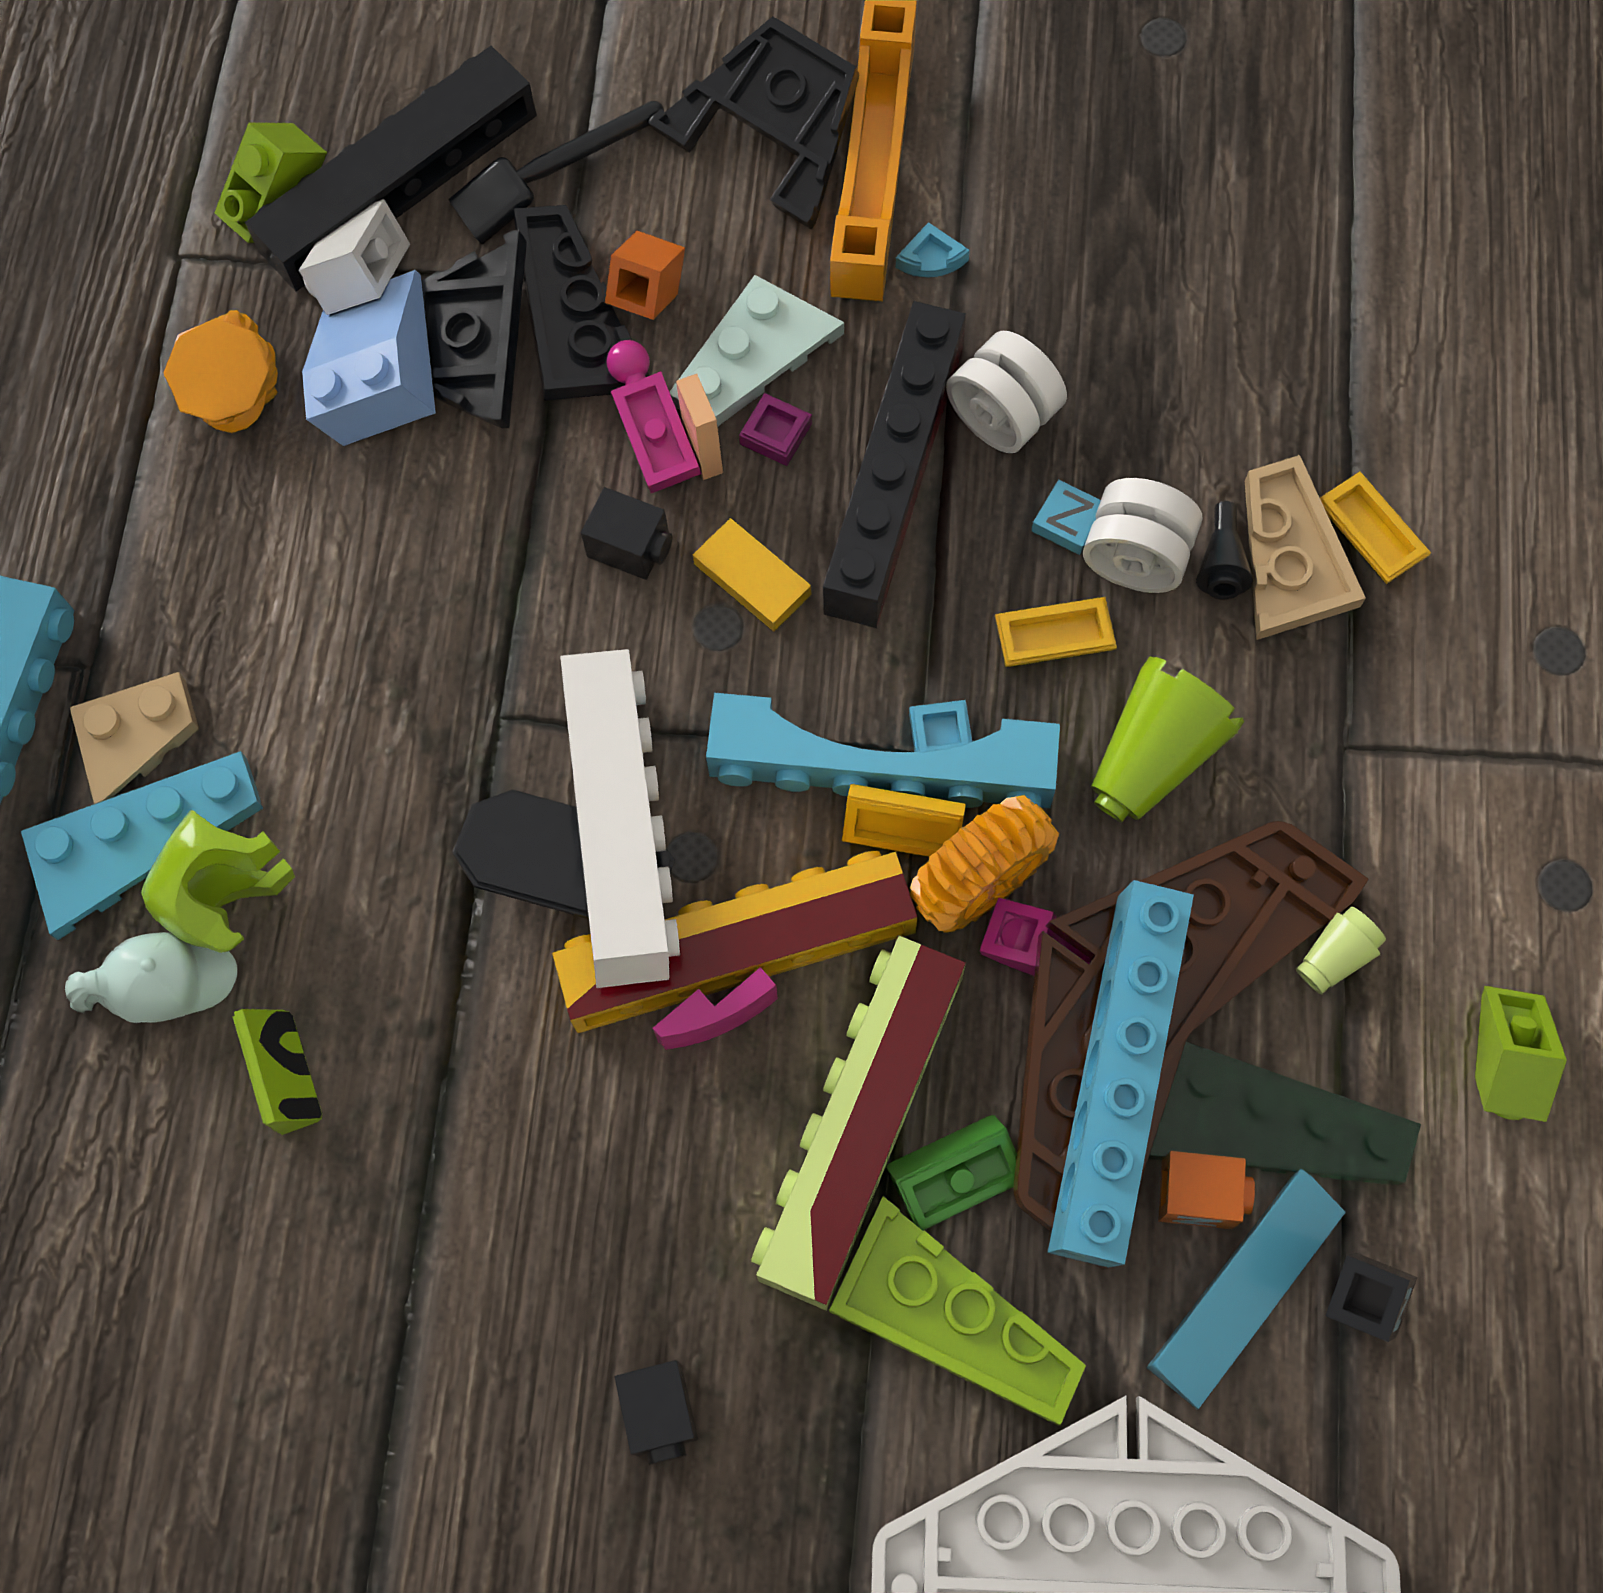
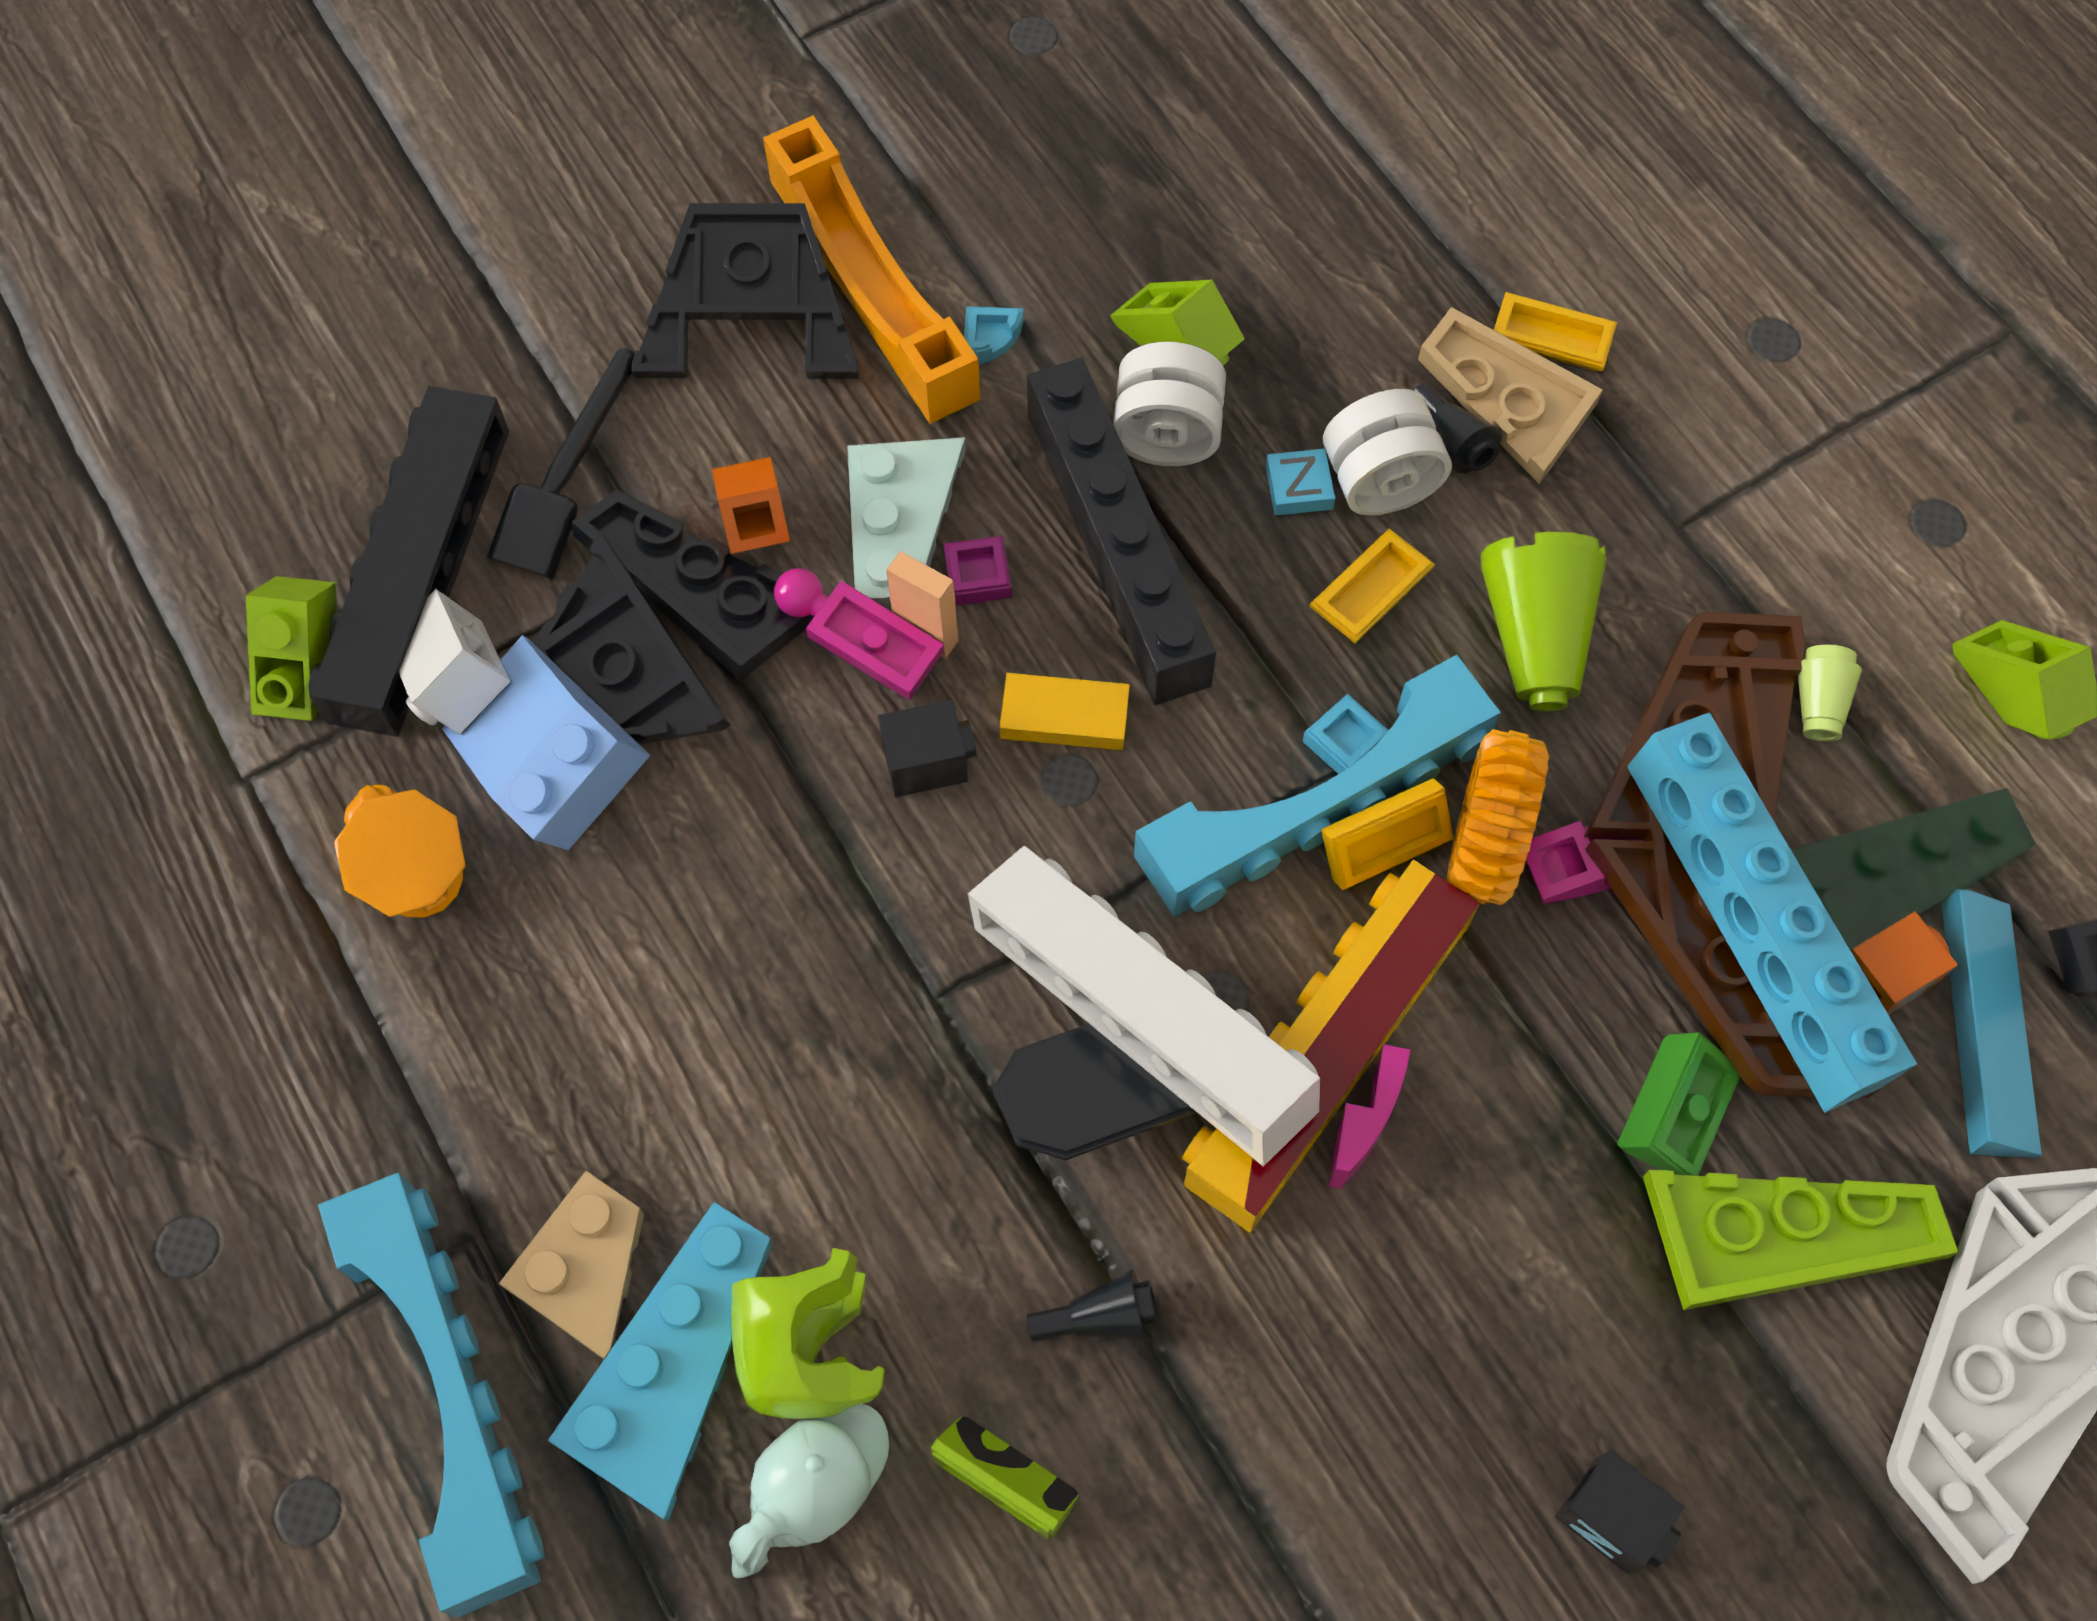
camera: 40 degrees left, 5 degrees down
(438, 1015) = (1111, 1310): none -> black cone
(861, 1122) = (1575, 1124): brick -> none
(1075, 337) = (1182, 314): none -> lime slope

